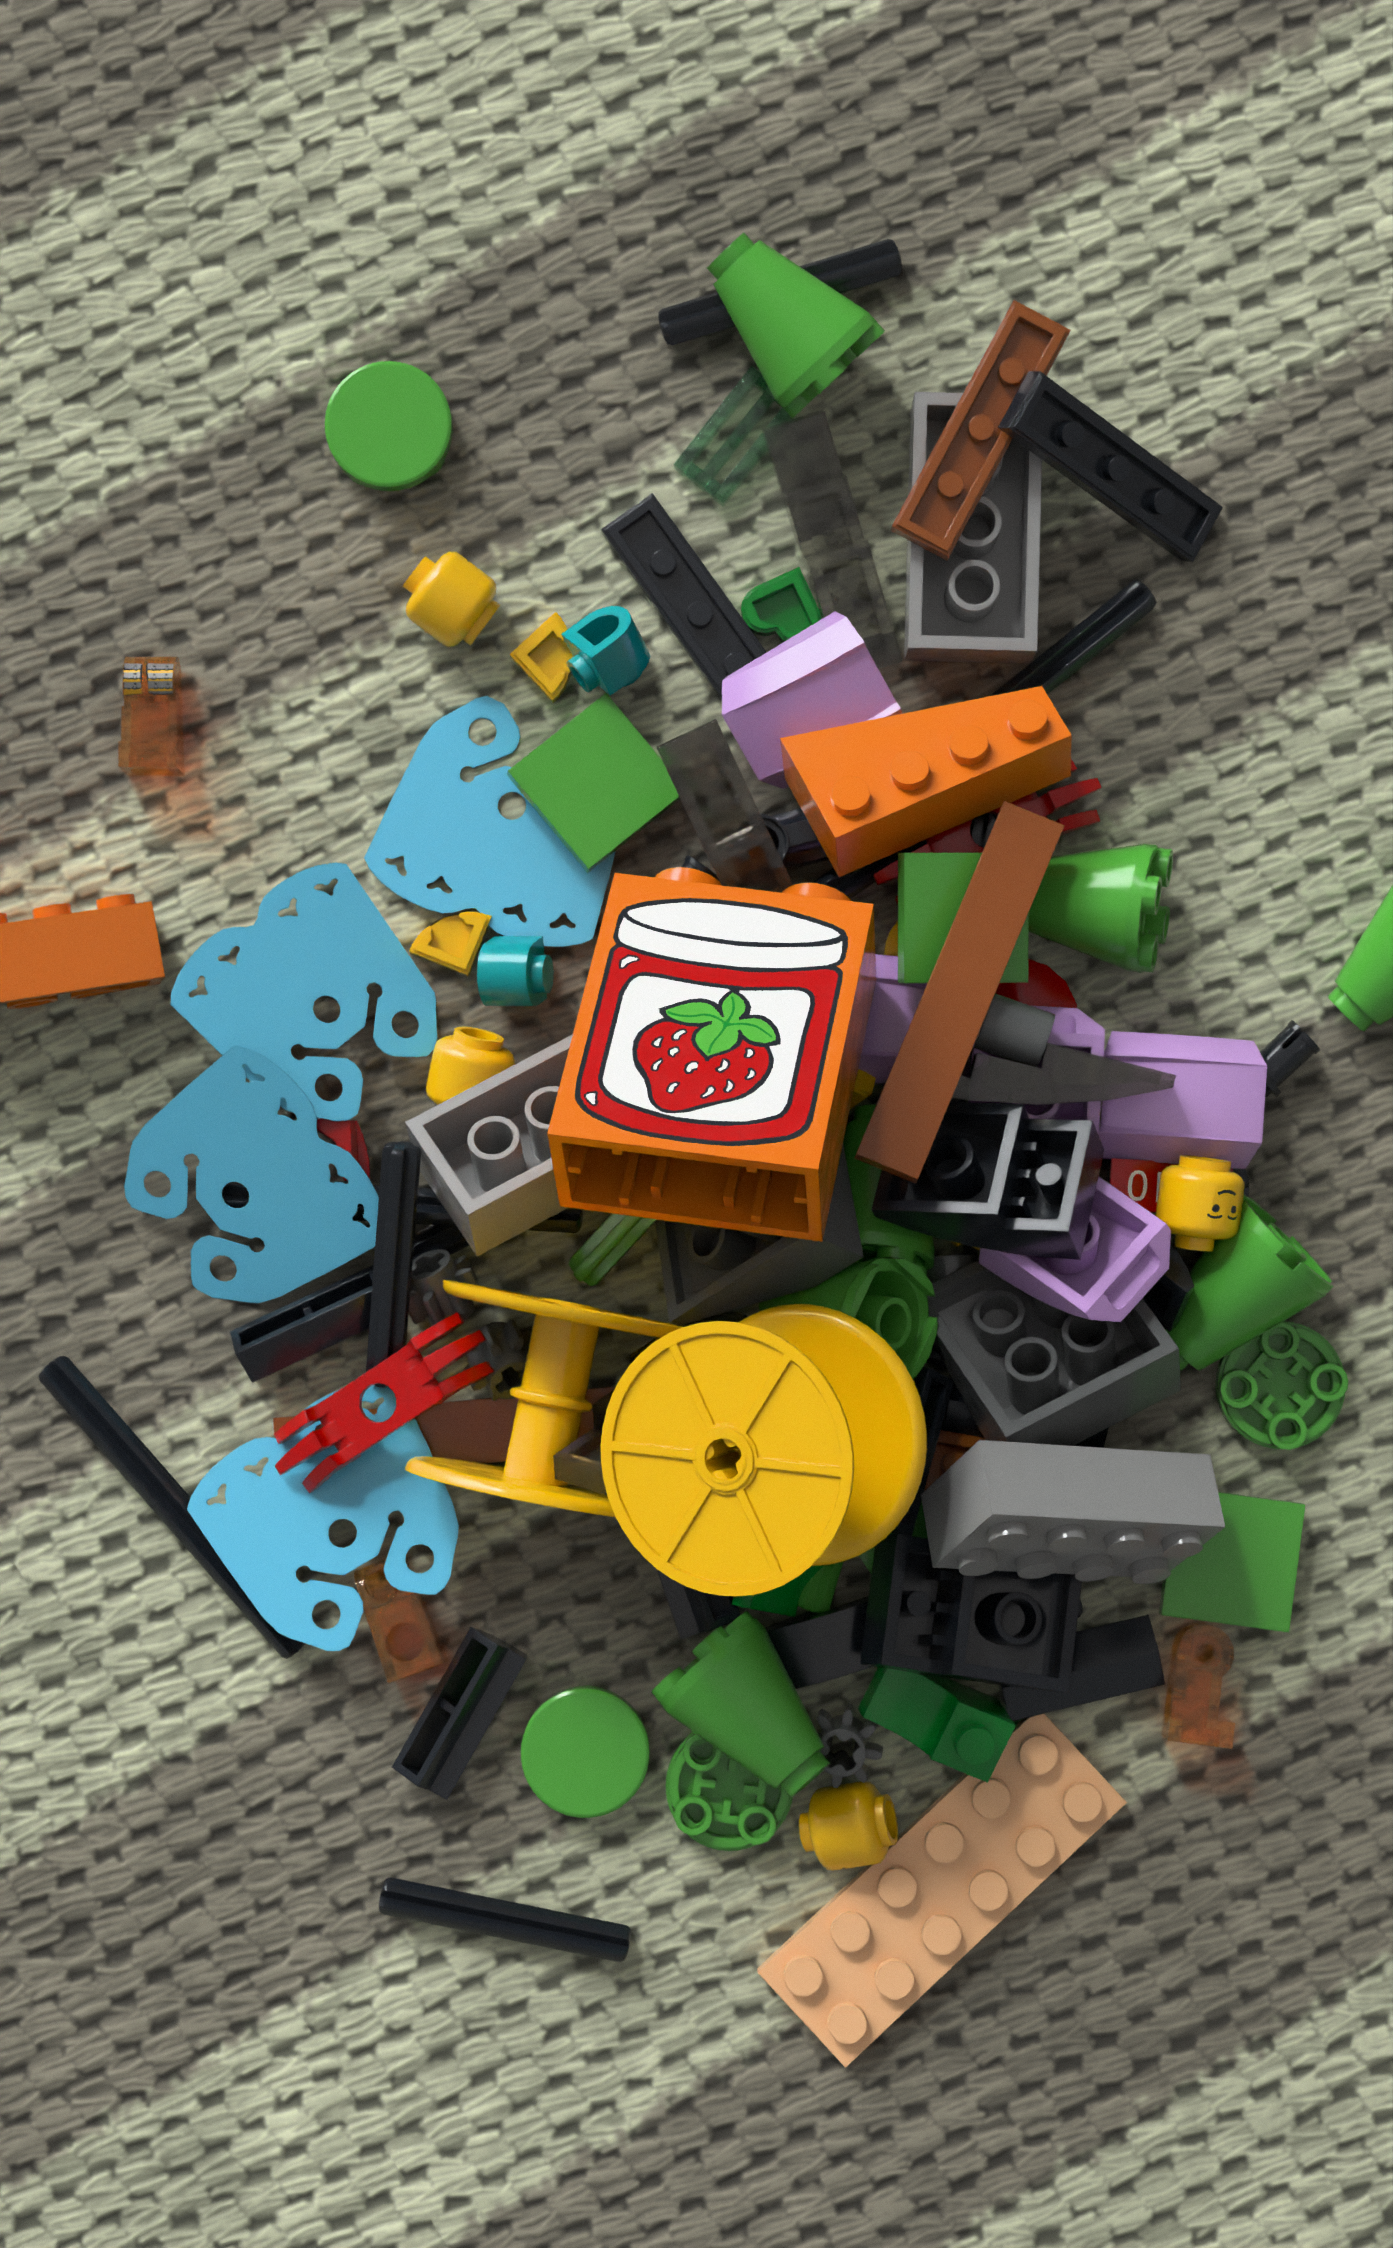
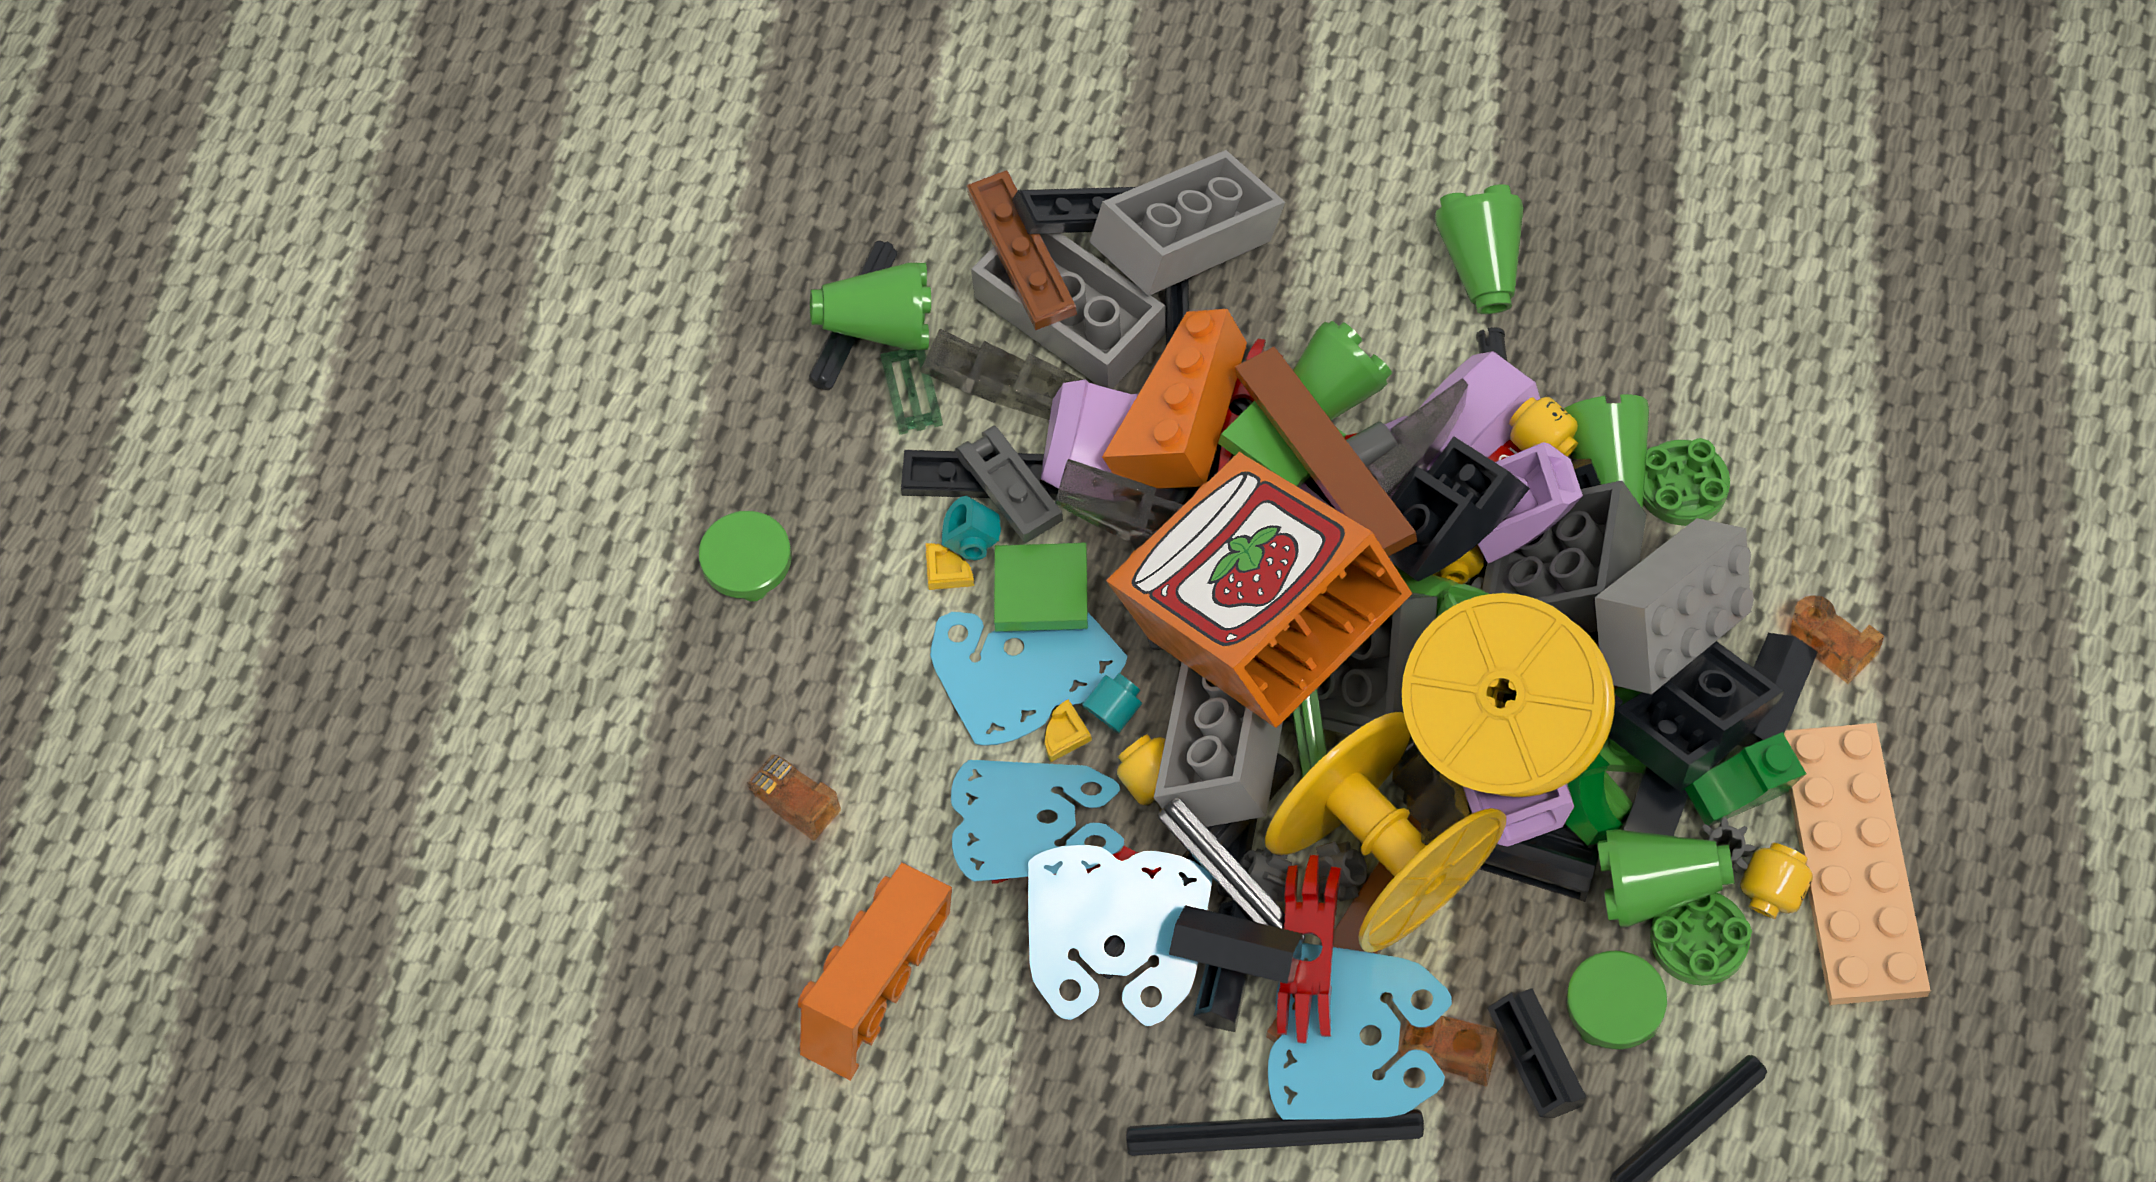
camera: 50 degrees left, 25 degrees down
(313, 1332) = (1237, 944): none -> black piece
(450, 599) = (871, 587): yellow head -> none
(688, 650) = (1010, 484): none -> dark grey plate
(780, 606) = (1026, 429): green tile -> none
(1168, 589) = (1186, 222): none -> light grey brick
(1243, 1570) = (1781, 569): bright green tile -> none

